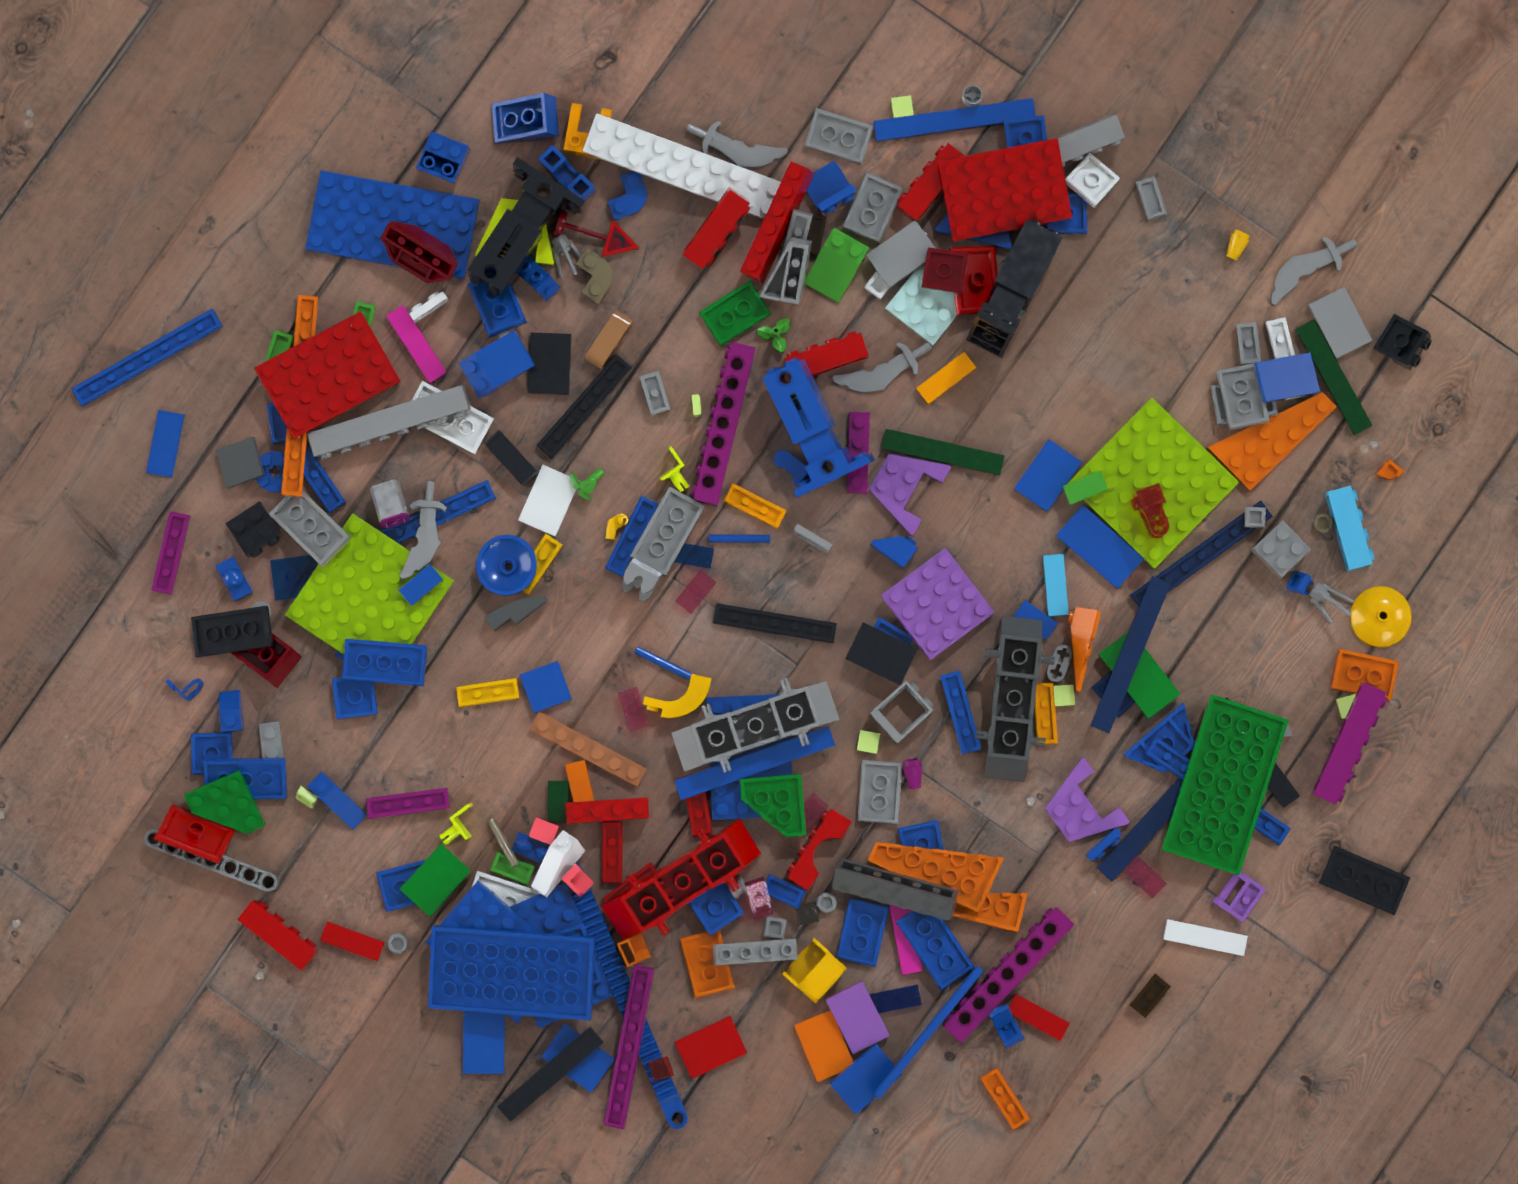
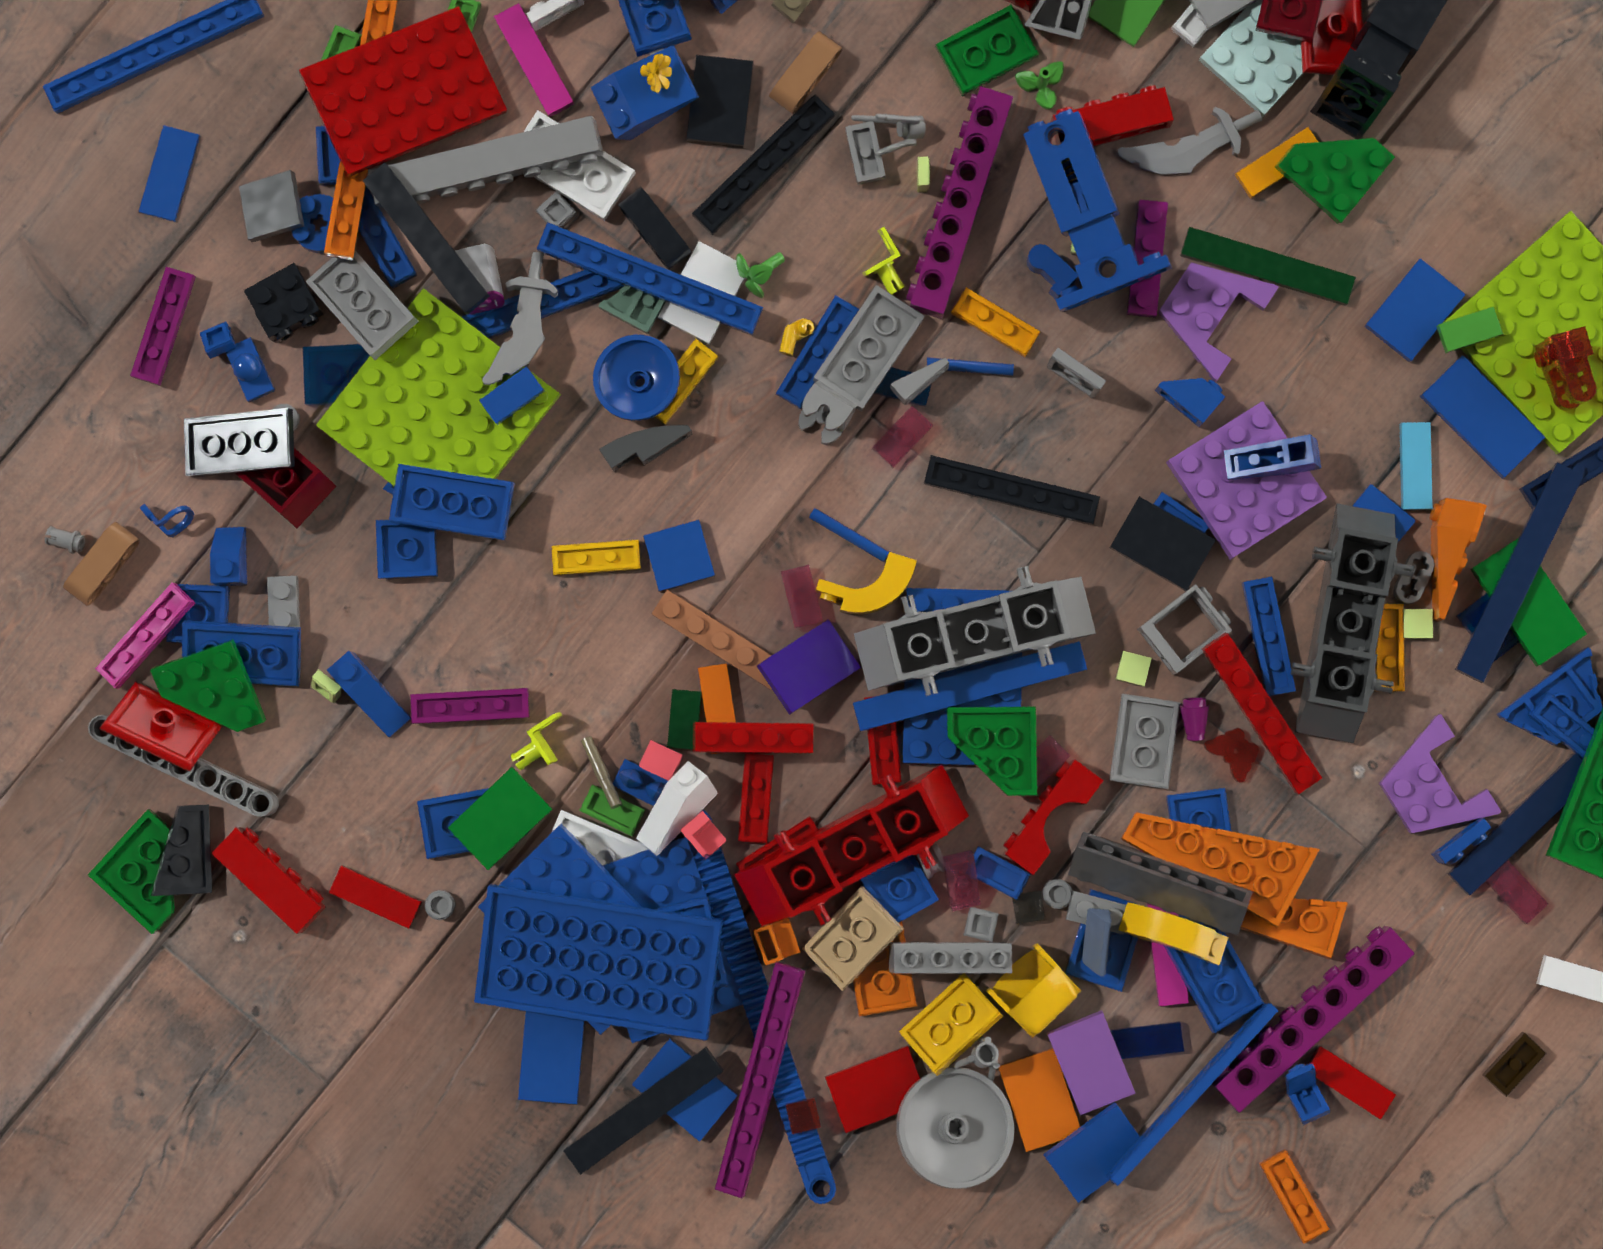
camera: 10 degrees right, 0 degrees up
(119, 709) = (72, 541): none -> light grey pin
(142, 723) = (101, 563): none -> medium nougat beam
(177, 771) = (145, 635): none -> dark pink tile
(188, 936) = (131, 870): none -> green plate
(210, 559) = (218, 340): none -> blue tile
(219, 921) = (187, 854): none -> black wing
(352, 479) = (426, 238): none -> black tile
(440, 450) = (556, 210): none -> light grey tile
(504, 510) = (633, 308): none -> sand green wing
(505, 352) = (657, 72): none -> yellow plant
(510, 494) = (649, 278): none -> blue tile
(642, 758) = (808, 666): none -> dark purple tile
(683, 373) = (907, 127): none -> light grey plant
(686, 944) = (852, 938): none -> tan tile
(701, 554) = (913, 384): none -> light grey slope
(758, 998) = (950, 1024): none -> yellow tile
(766, 1069) = (955, 1128): none -> light grey dish
(780, 1017) = (982, 1056): none -> light grey plant
(855, 913) = (1082, 902): none -> light grey plate
(855, 932) = (1097, 940): none -> sand blue slope
(907, 922) = (1173, 932): none -> yellow arch
(935, 791) = (1224, 746): none -> clear red animal
(953, 588) = (1273, 458): none -> blue slope
(958, 766) = (1261, 713): none -> red plate
(985, 382) = (1335, 172): none -> green plate

